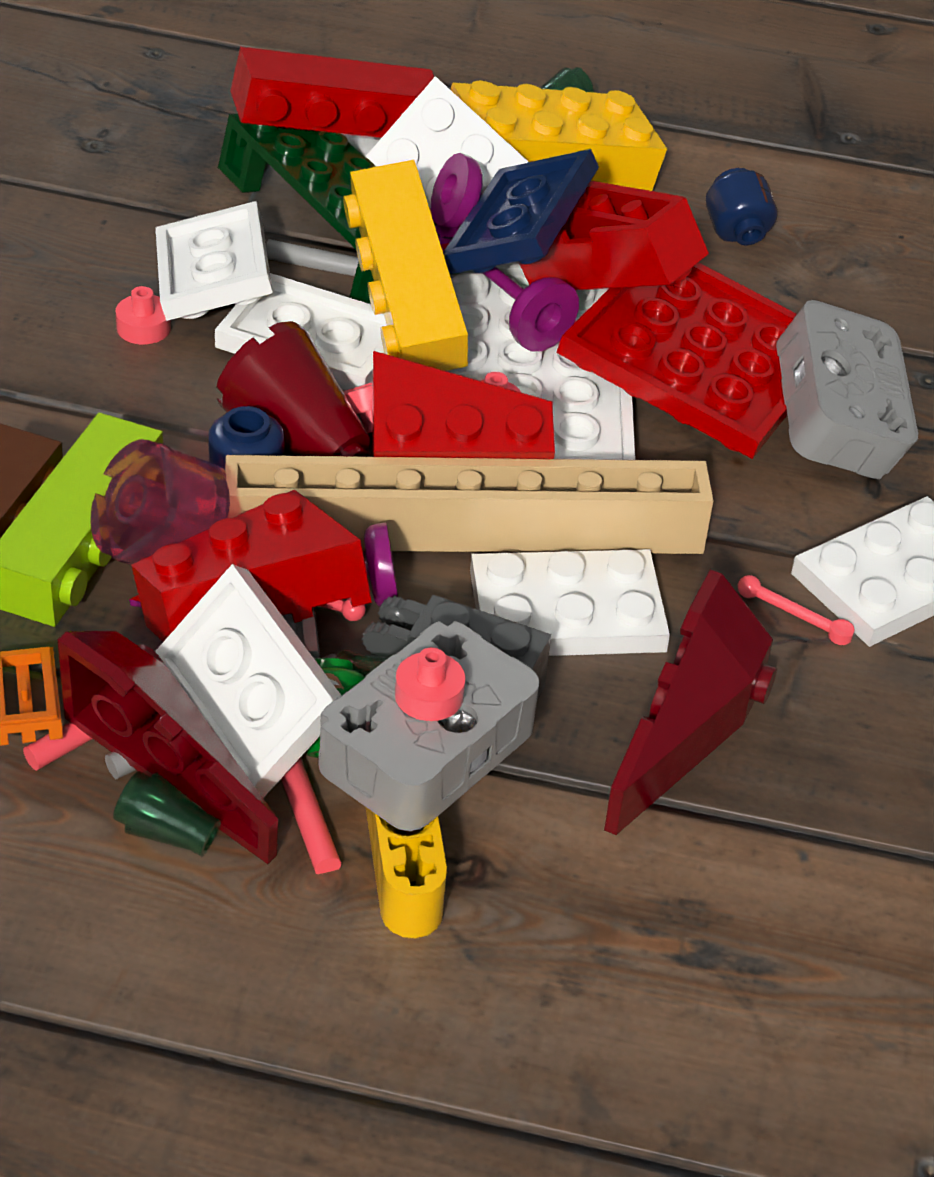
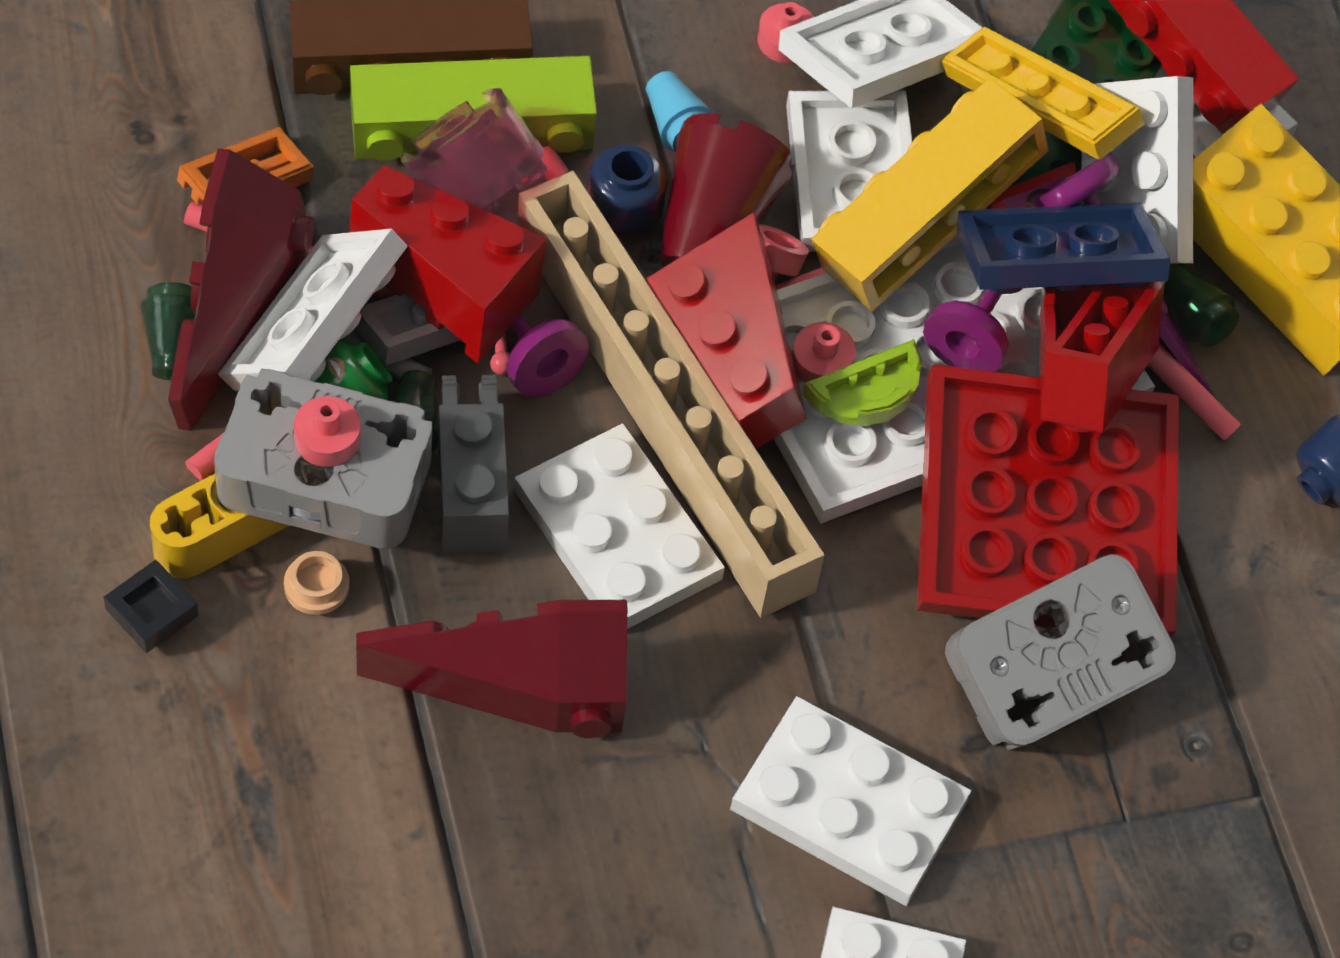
camera: 60 degrees right, 15 degrees up
(180, 401) = (671, 105): none -> medium azure cone
(321, 190) = (1065, 102): none -> yellow tile
(474, 946) = (151, 606): none -> black plate
(513, 816) = (316, 583): none -> light nougat plate
(550, 380) = (868, 389): none -> lime plate
(839, 630) = (729, 773): coral hinge -> none

